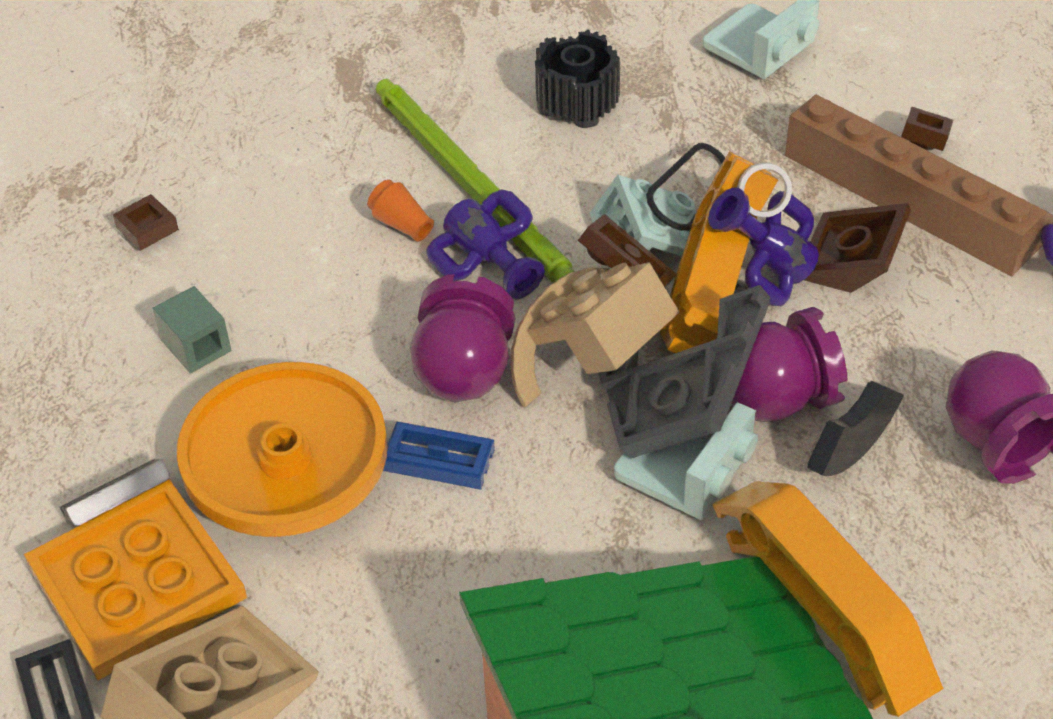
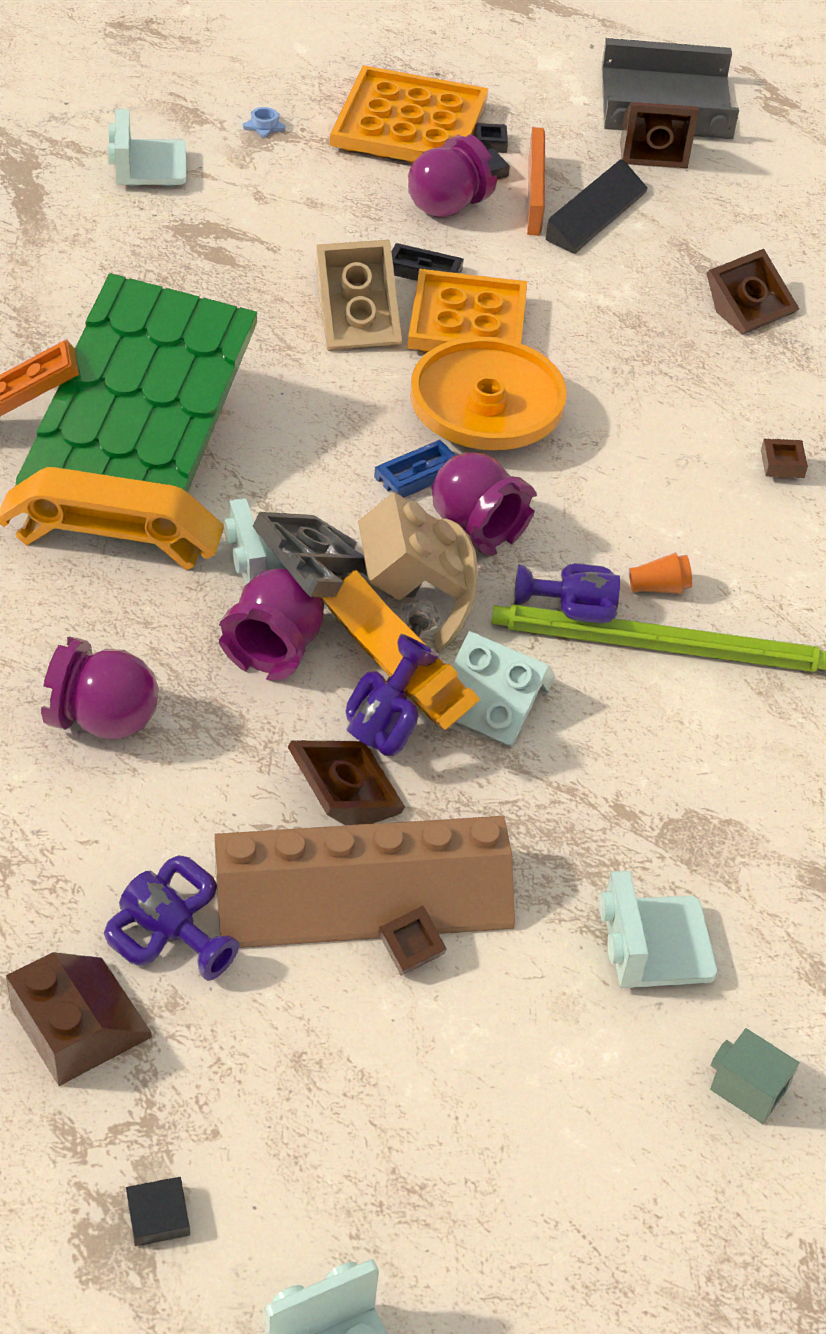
camera: 125 degrees right, 0 degrees up
(115, 492) = (538, 328): tile -> none
(192, 329) = (645, 421): sand green brick -> none
(577, 78) = (711, 755): black brick -> none
(612, 246) = (454, 615): reddish brown plate -> none
(650, 200) = (555, 782): black piece -> none
(787, 188) = (416, 684): white piece -> none
(854, 433) = (193, 635): black tile -> none

